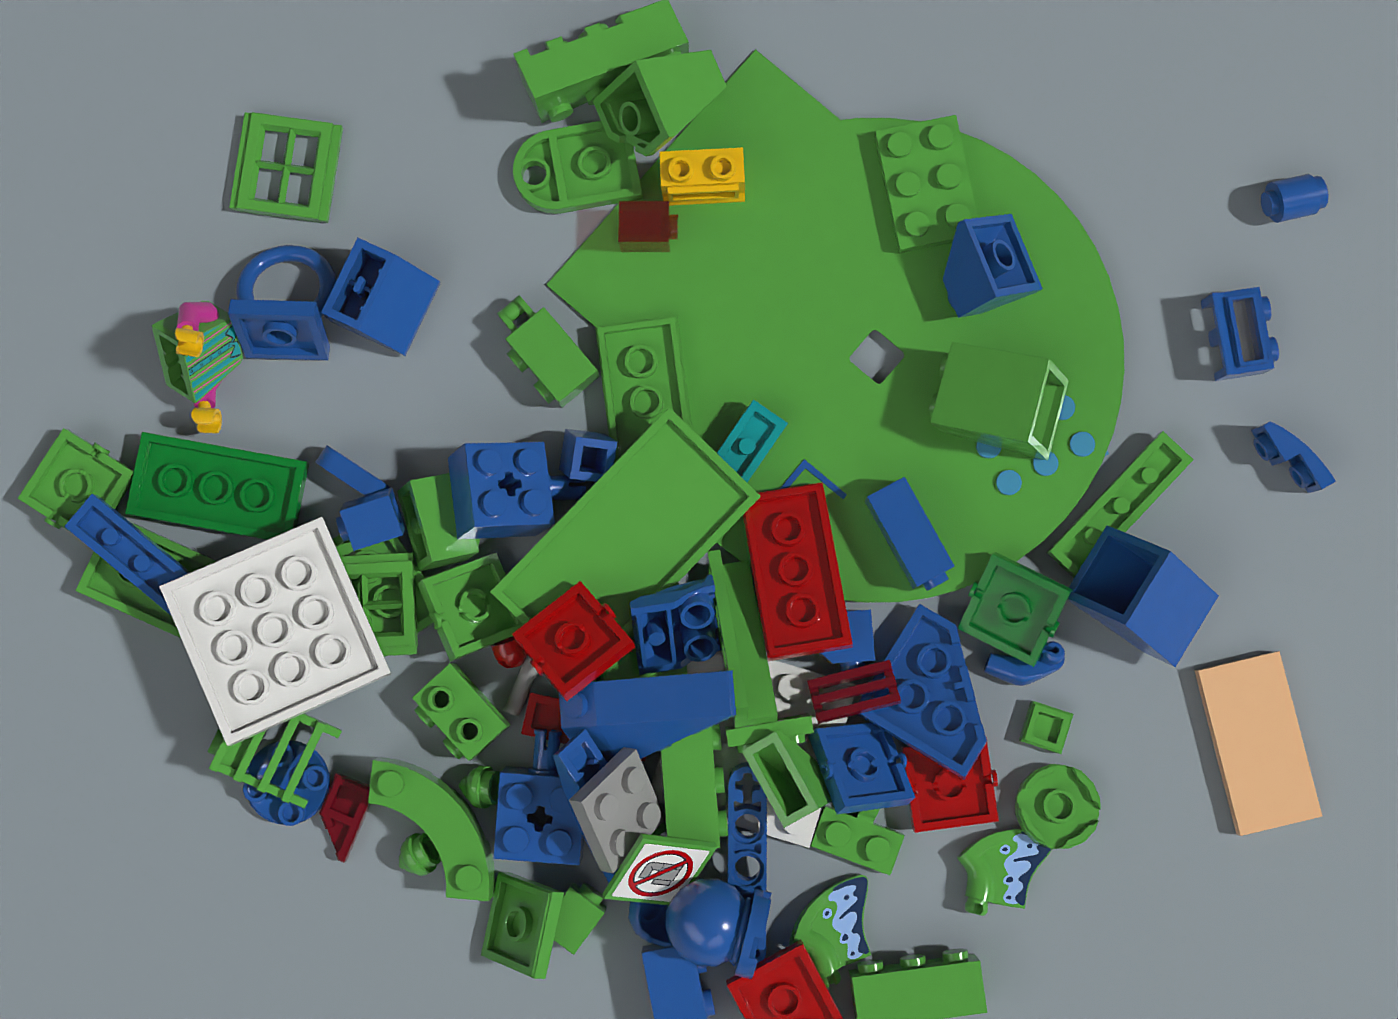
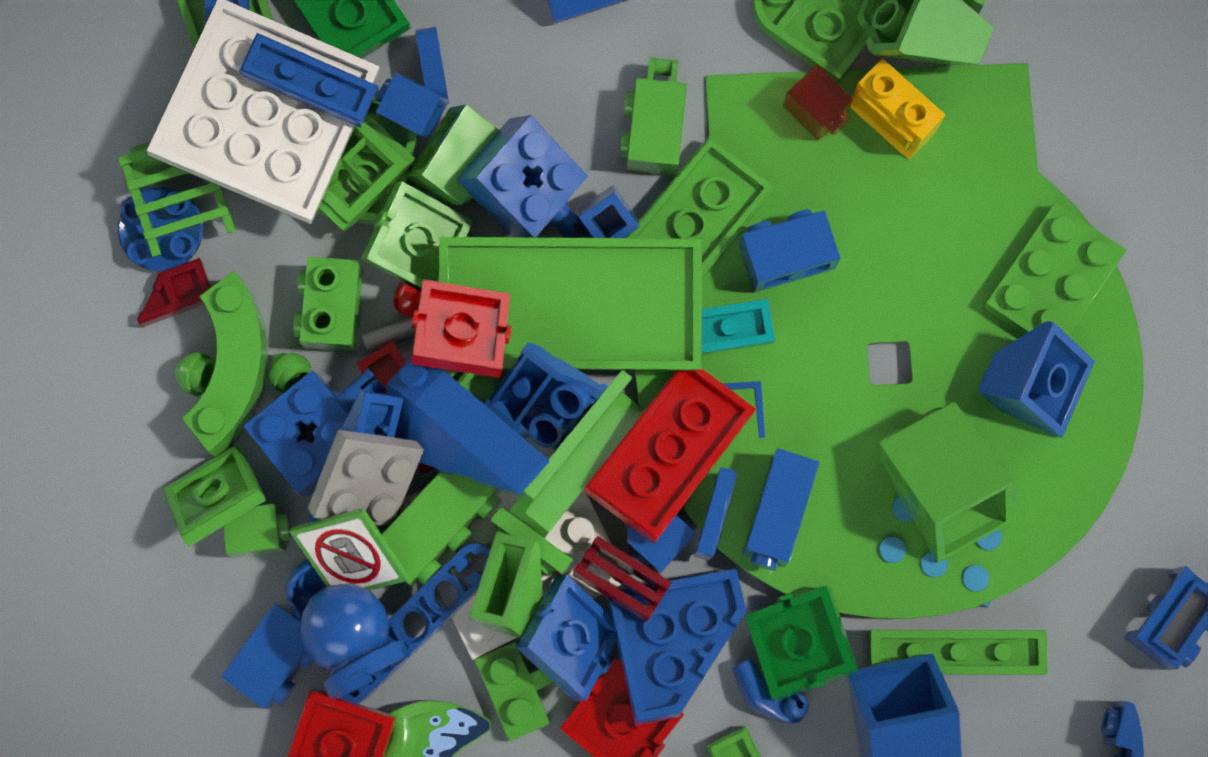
camera: 40 degrees right, 5 degrees down
(284, 579) = (308, 80): none -> blue tile
(731, 350) = (788, 249): none -> blue brick
(870, 582) = (715, 514): none -> blue tile

